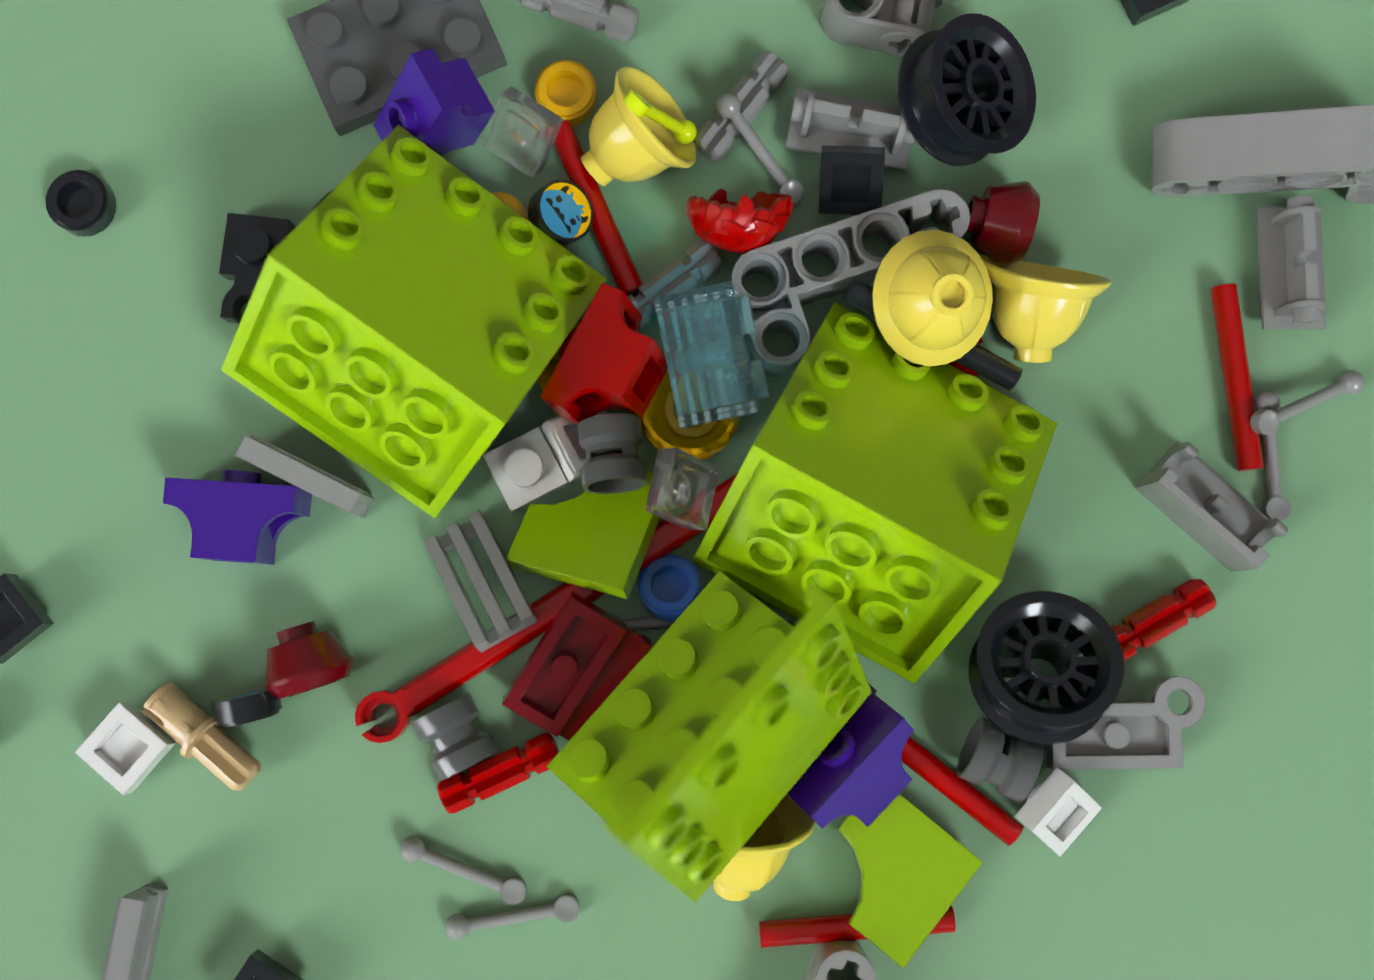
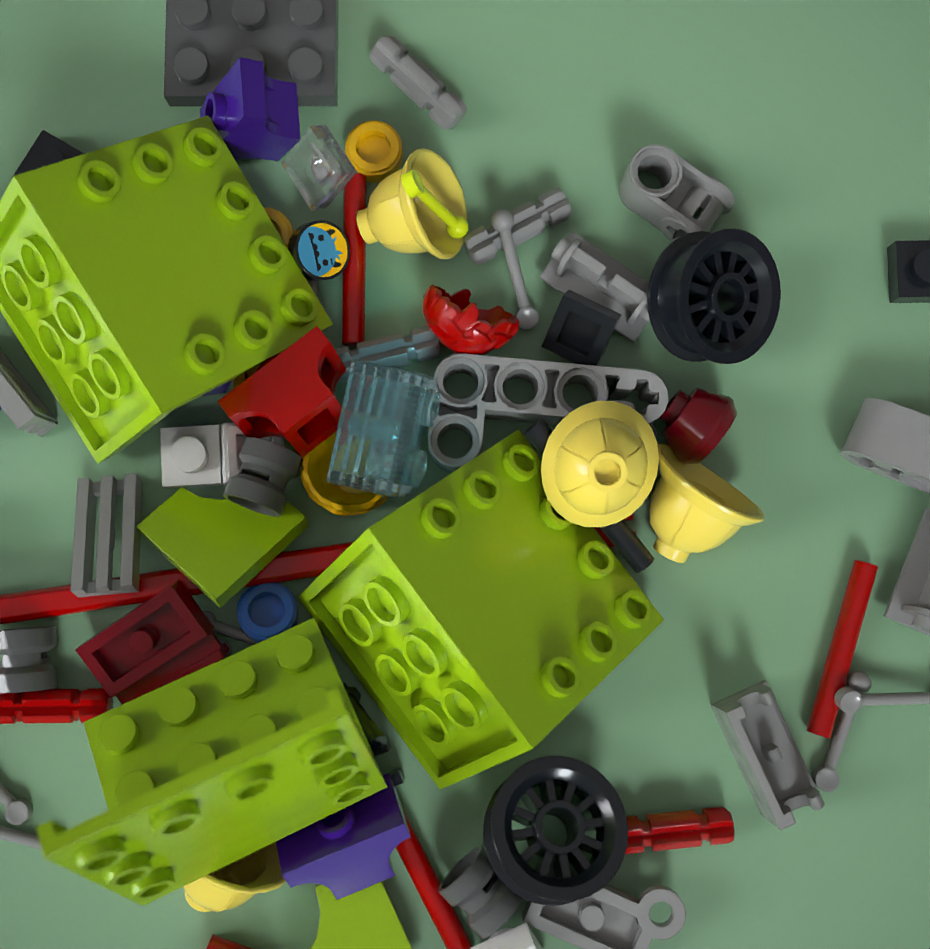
camera: 25 degrees right, 0 degrees up
(682, 489) = (309, 534): clear plate -> none

